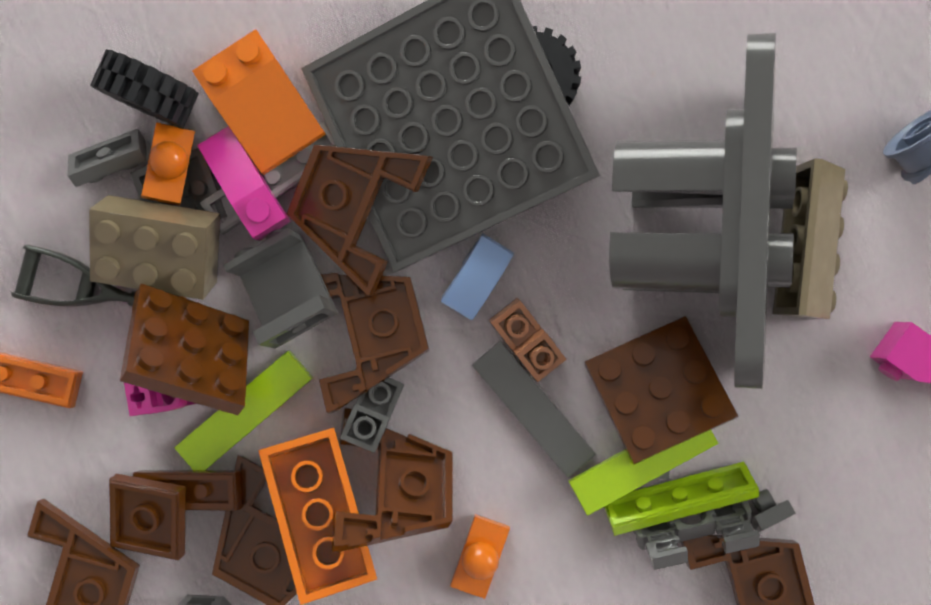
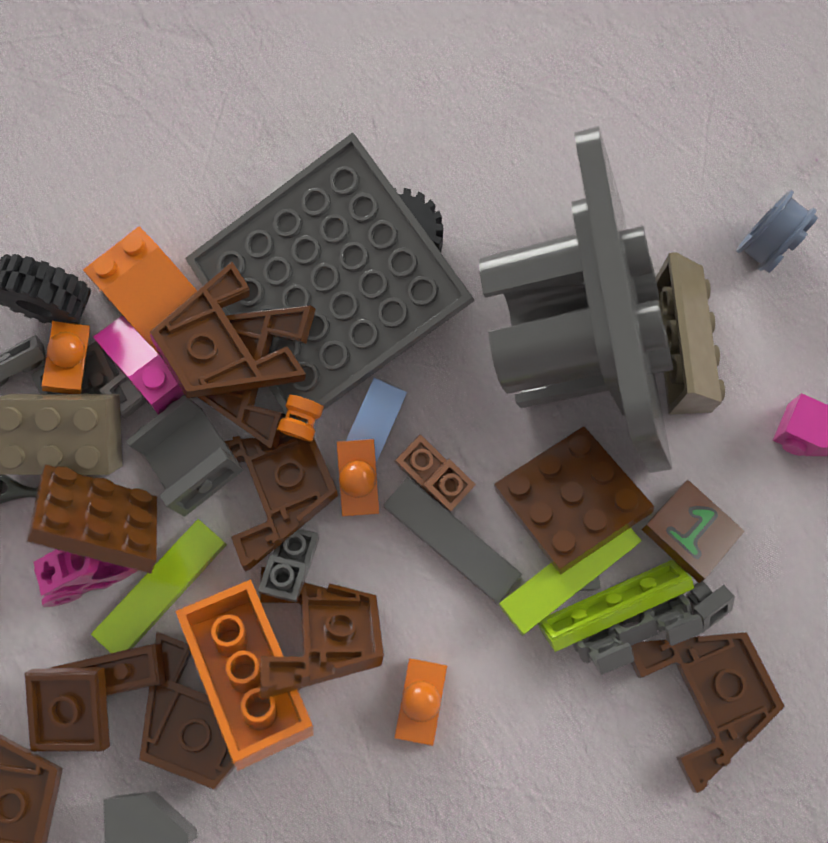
camera: 10 degrees left, 15 degrees down
(314, 185) = (206, 349): none -> reddish brown wing
(406, 263) = (303, 410): none -> orange wheel
(451, 334) = (358, 477): none -> orange tile
(770, 439) = (693, 531): none -> reddish brown tile

